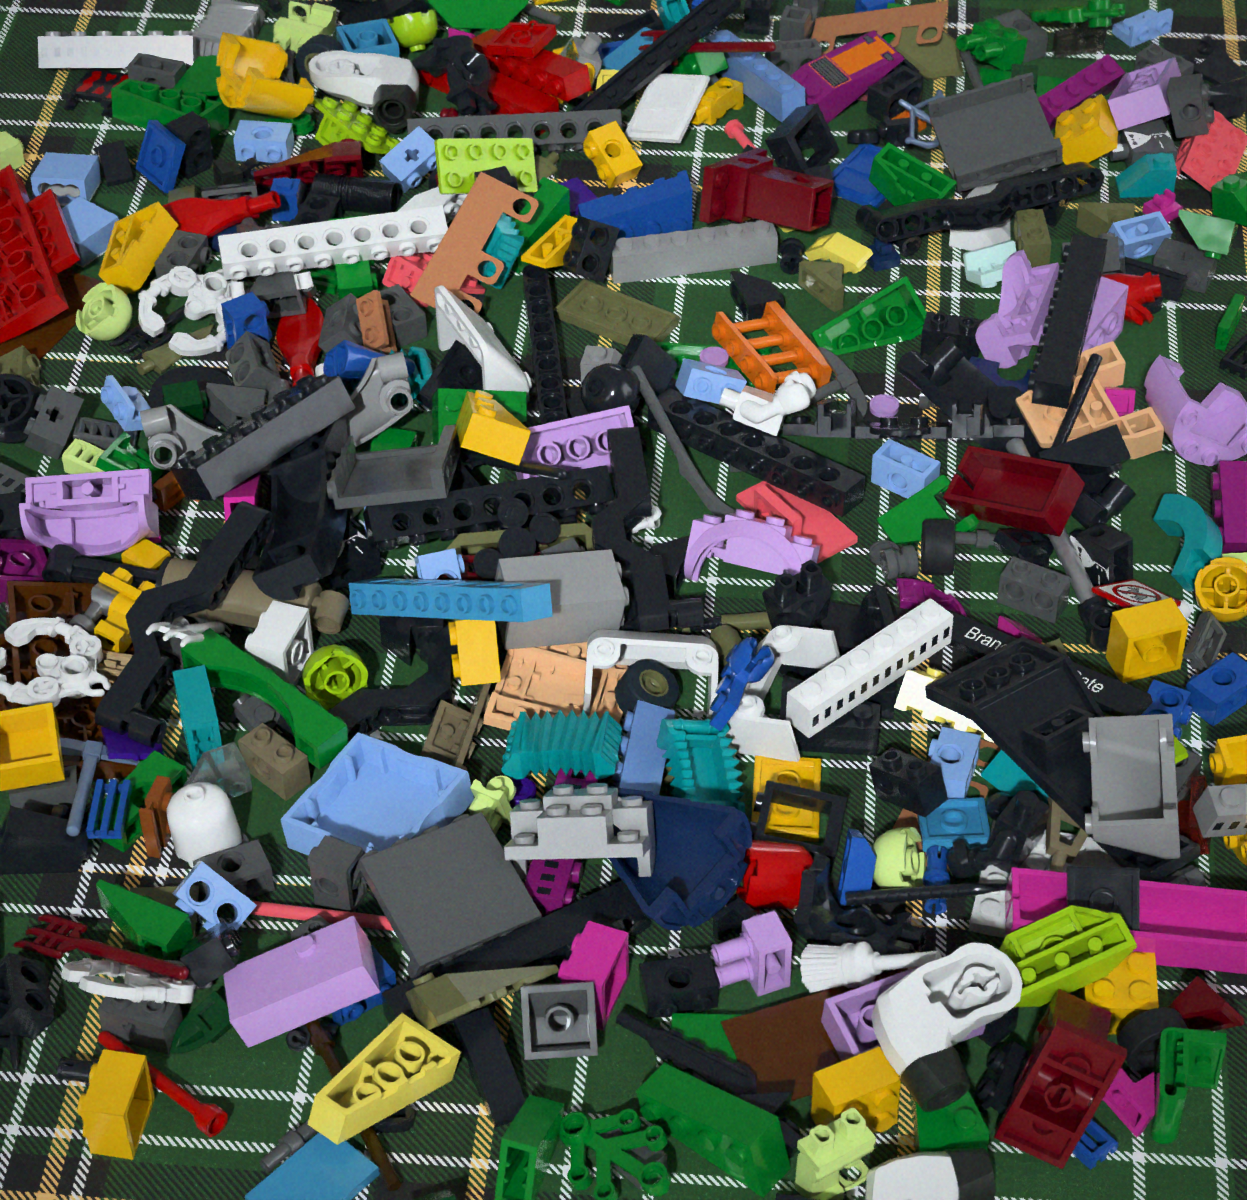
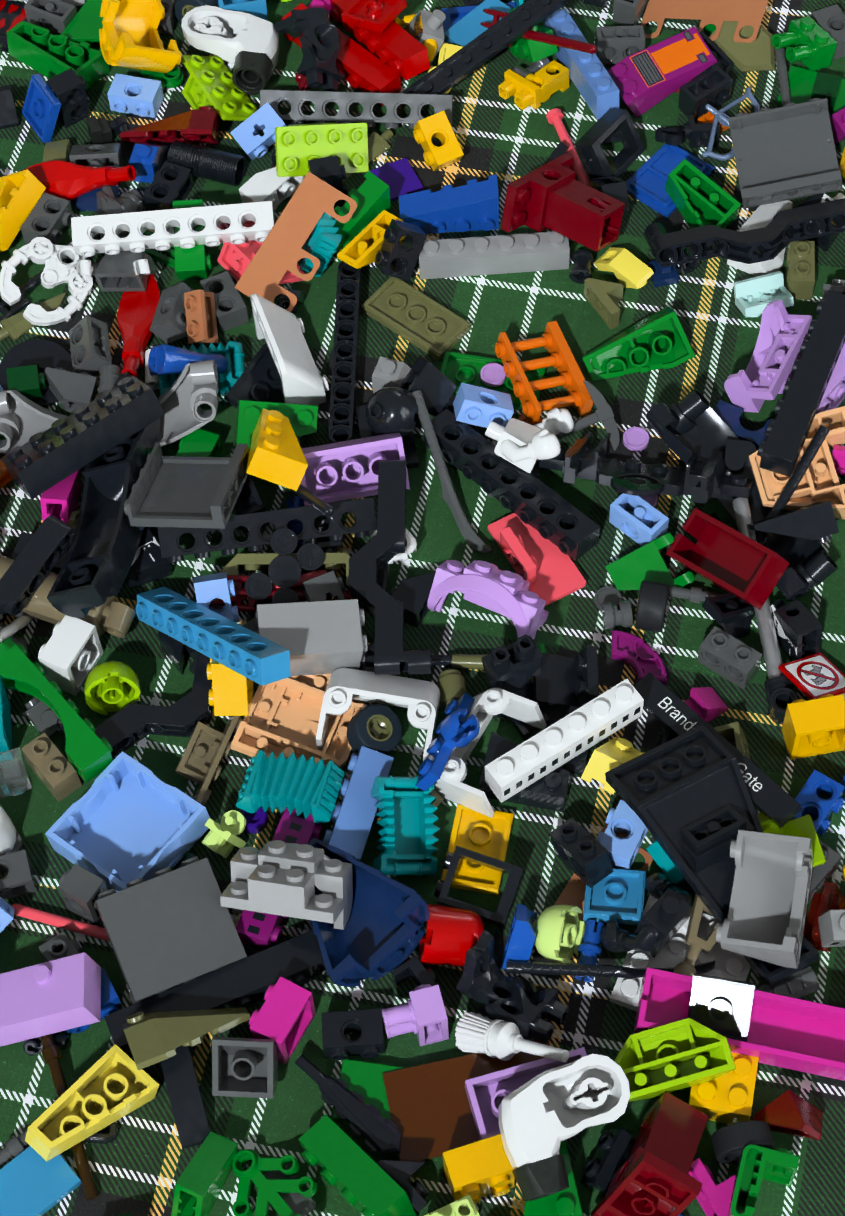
camera: 10 degrees right, 15 degrees up
(244, 315) = (90, 300): blue brick -> none
(666, 108) = (496, 91): white piece -> none
(752, 294) = (539, 310): black slope -> none
(957, 329) = (706, 373): black brick -> none

